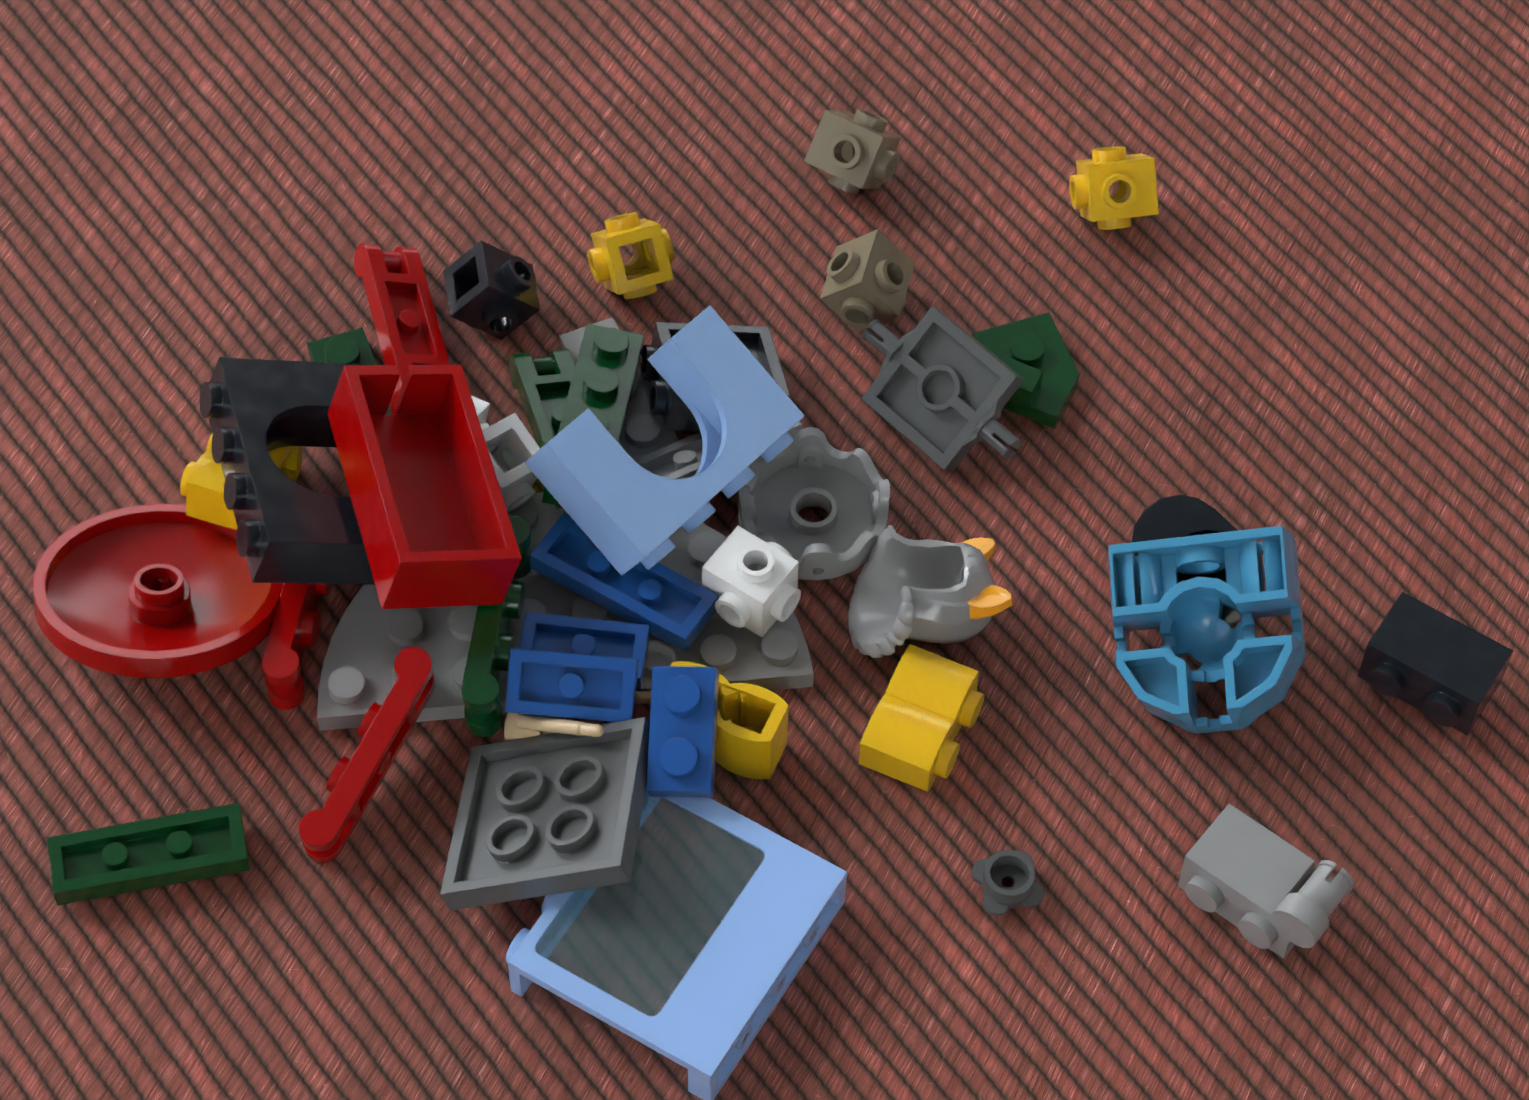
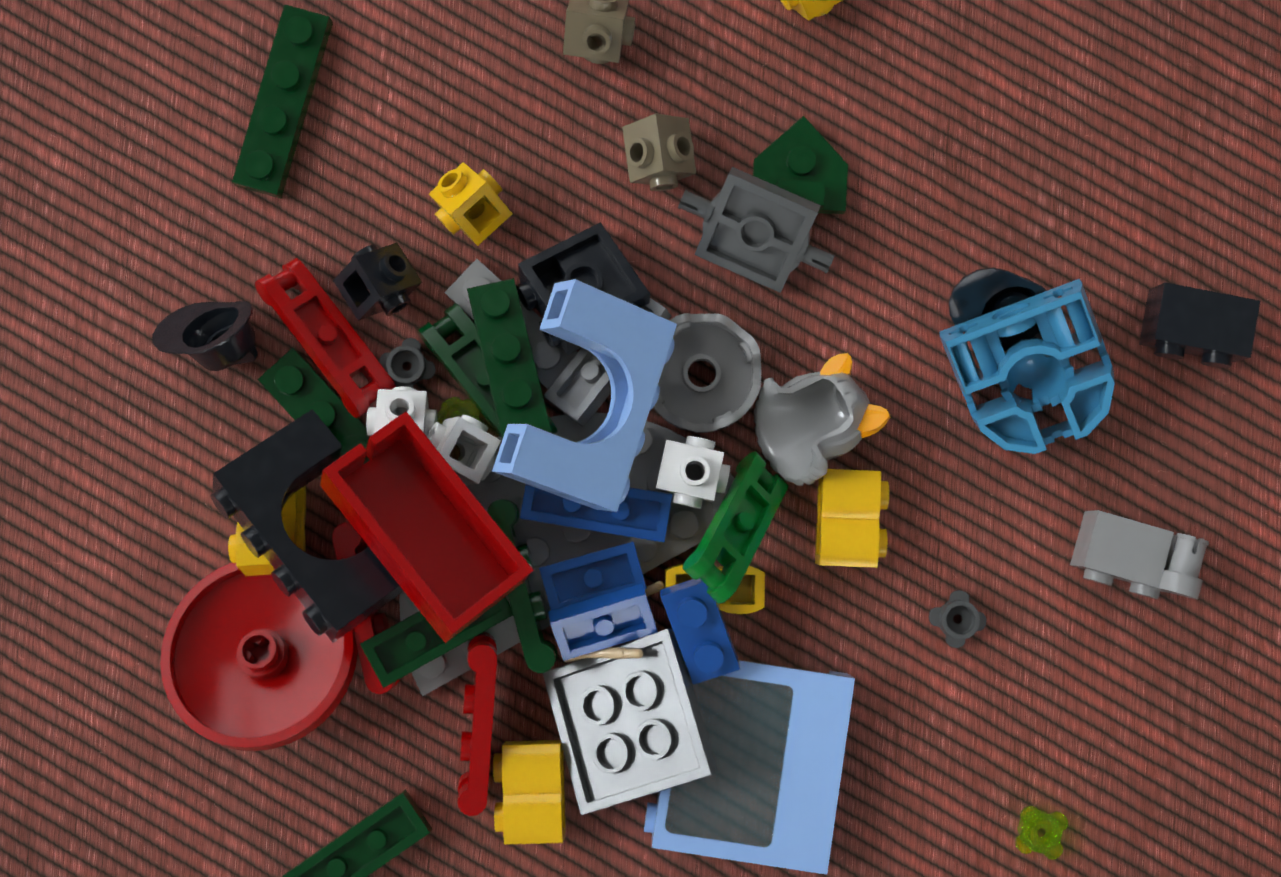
camera: 20 degrees left, 30 degrees up
(285, 289) = (209, 333): none -> black piece
(362, 632) = (416, 643): none -> dark green plate
(392, 865) = (531, 792): none -> yellow brick
(476, 114) = (282, 101): none -> dark green plate
(490, 380) = (408, 352): none -> dark grey plate
(776, 644) = (737, 528): none -> green plate

